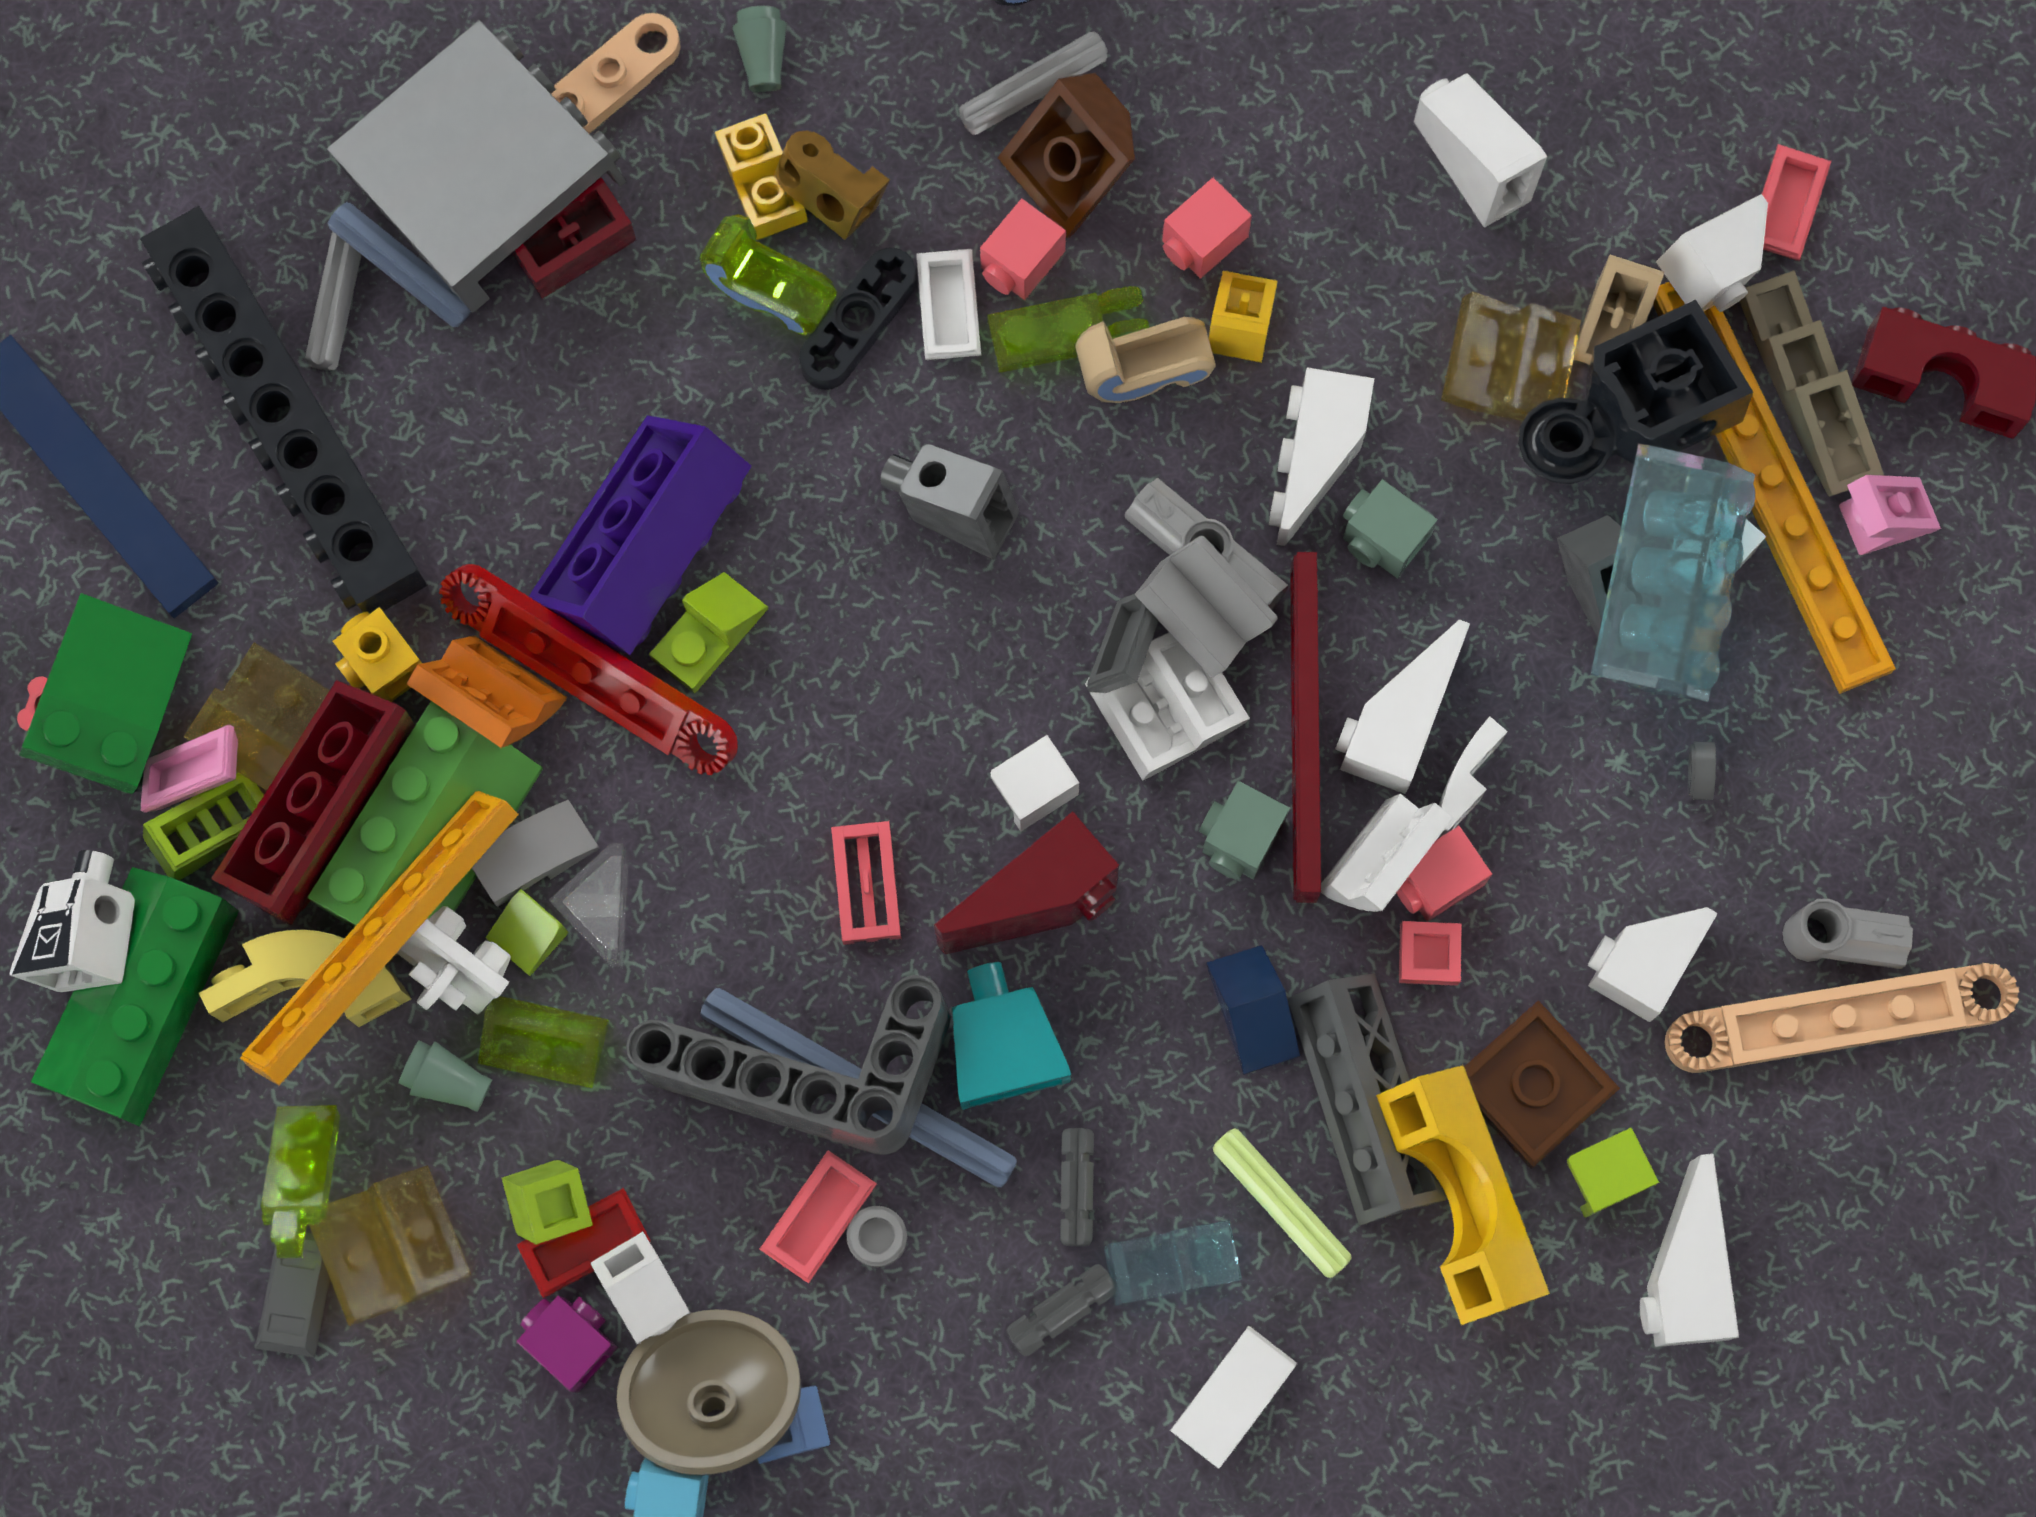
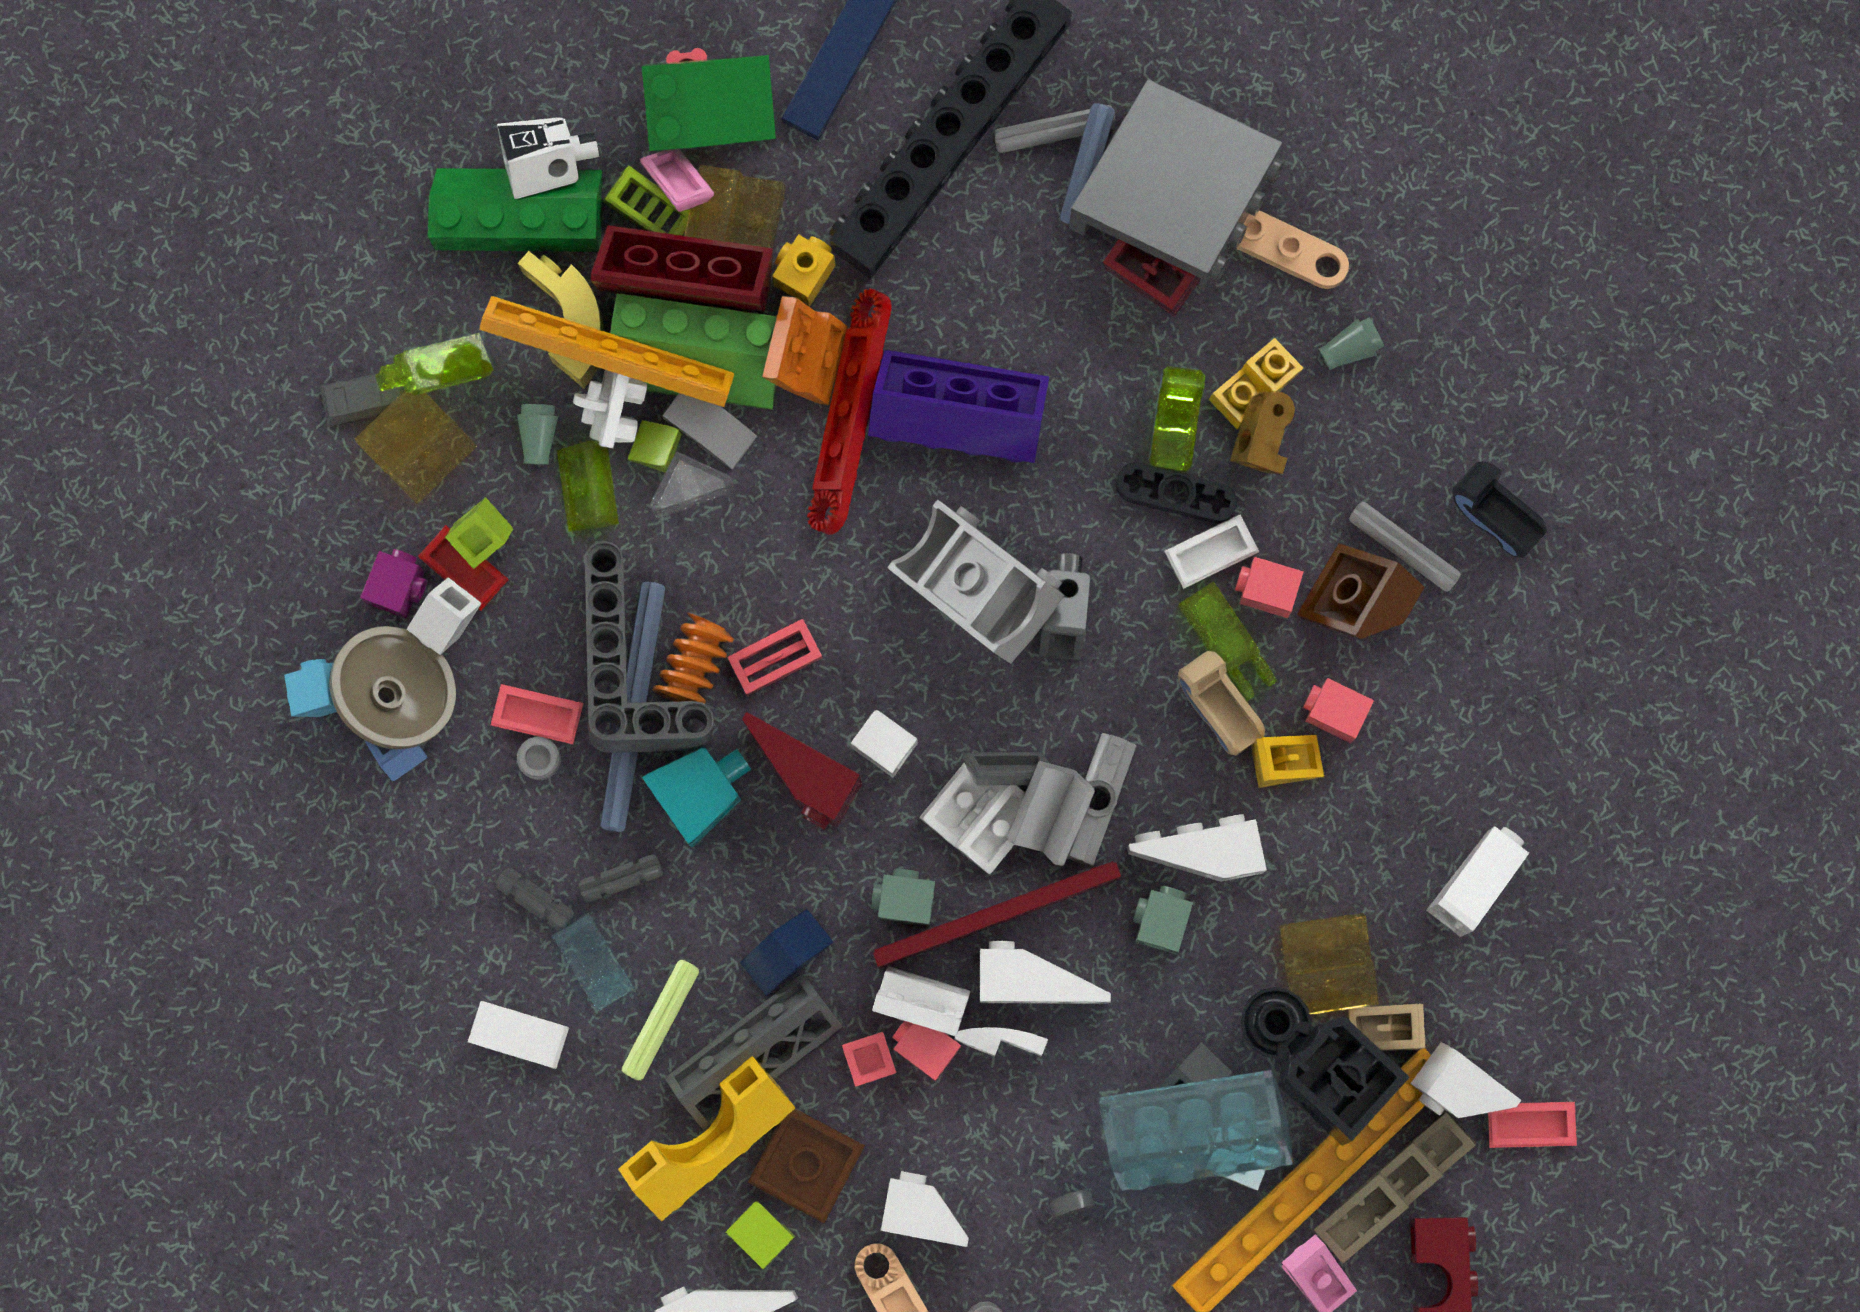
camera: 70 degrees right, 5 degrees up
(708, 631) = (909, 480): lime slope -> none
(831, 983) = (694, 660): none -> orange piece
(879, 579) = (978, 582): none -> light grey piece

